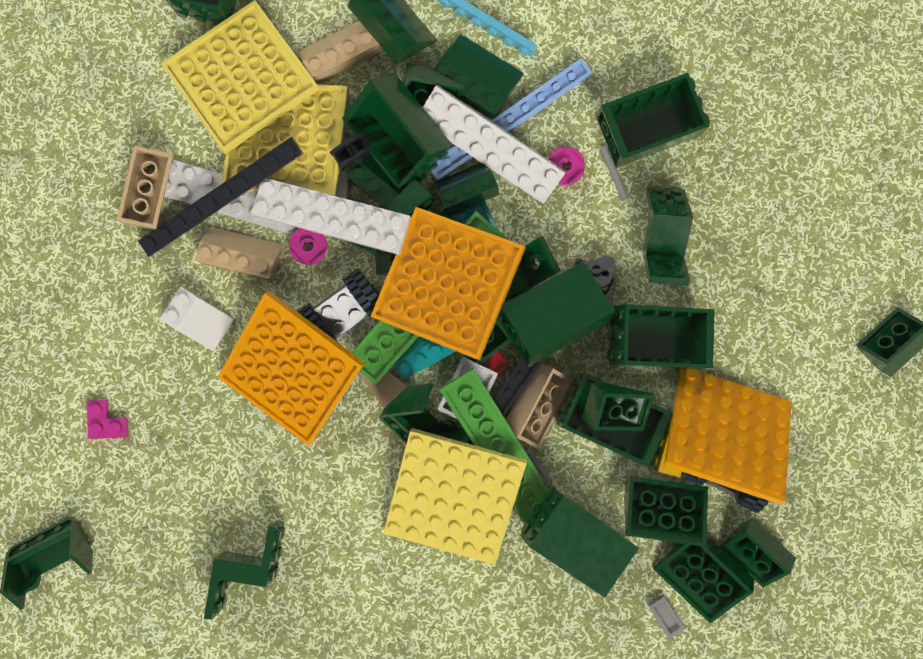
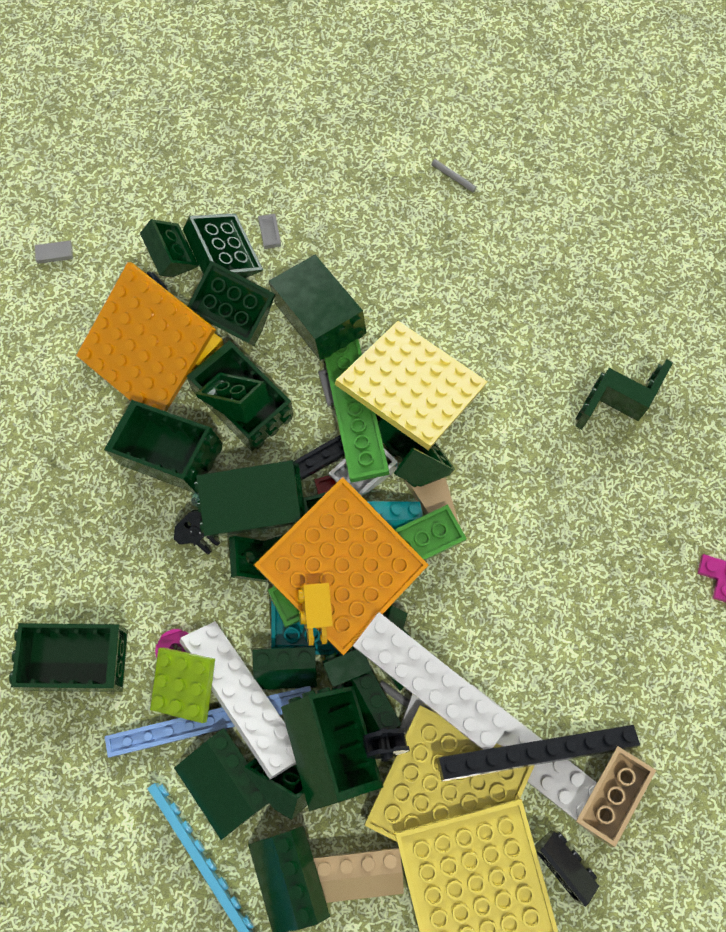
camera: 165 degrees left, 15 degrees down
(170, 118) = (567, 867): none -> black slope
(197, 318) = (601, 640): white slope -> none
(239, 253) = (538, 690): tan slope -> none
(290, 368) = (524, 550): light orange plate -> none
(307, 257) = (472, 661): dark pink plate -> none
(344, 306) = (458, 587): plate -> none
(453, 231) = (316, 610): none -> yellow hinge
(538, 405) = (303, 434): tan slope -> none
(545, 136) = (182, 684): none -> lime plate
(614, 173) = (132, 623): light grey bar -> none
(667, 235) = (112, 538): dark green bracket -> none
(871, 503) = (53, 252): none -> light grey tile

